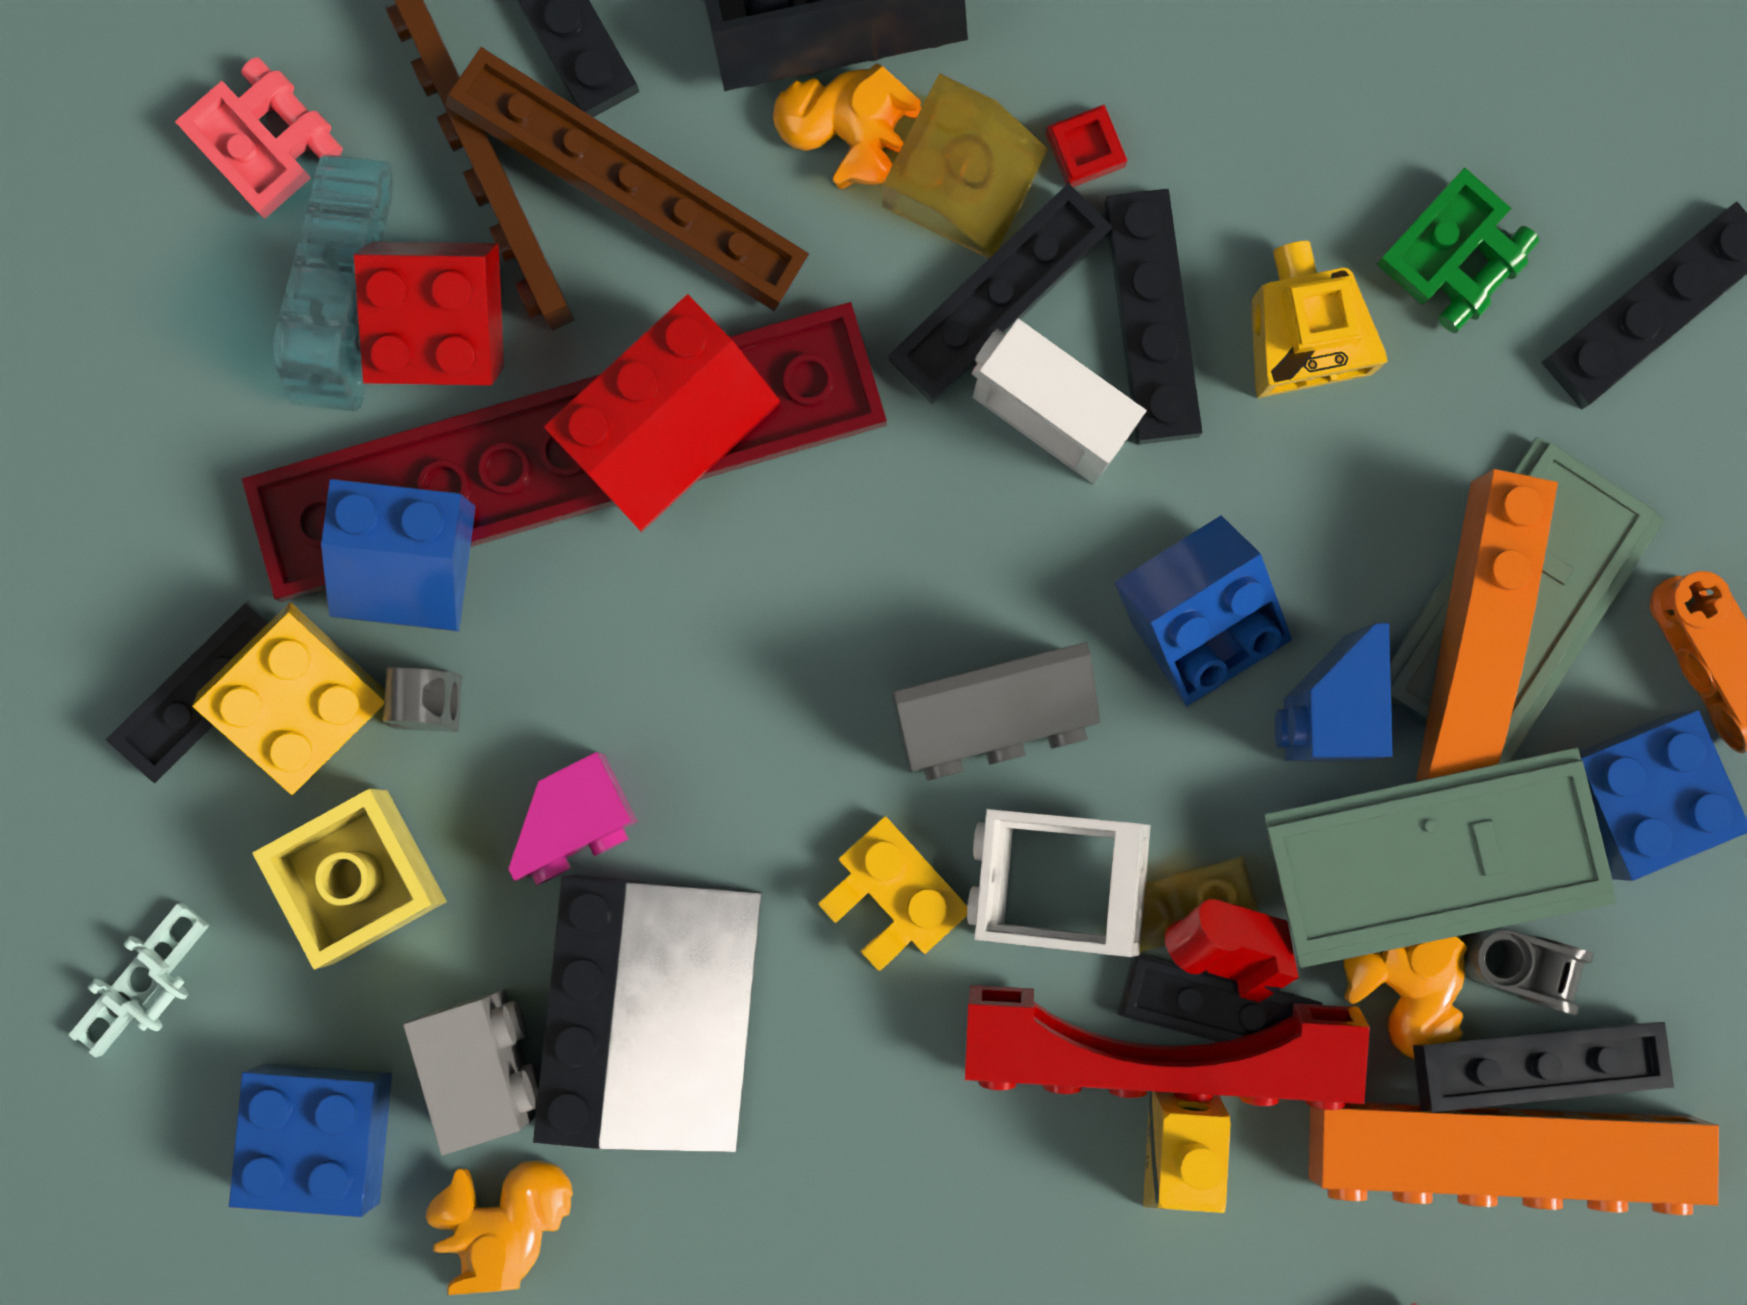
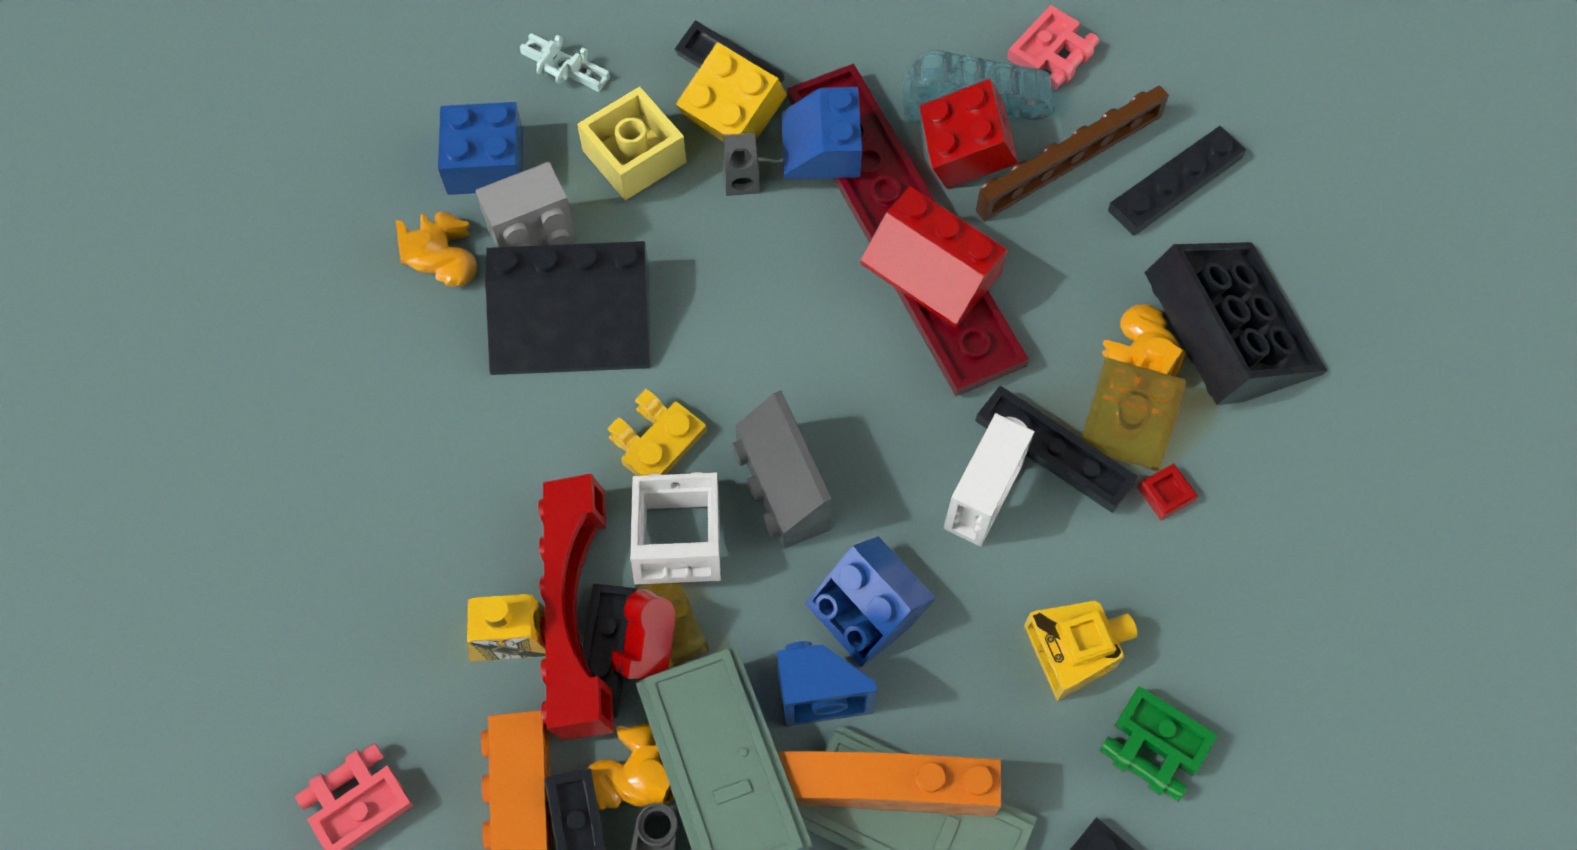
camera: 85 degrees right, 20 degrees down
(569, 813) = (684, 250): dark pink slope -> none
(626, 178) = (1072, 226): reddish brown plate -> none
(1153, 315) = (1063, 547): black plate -> none

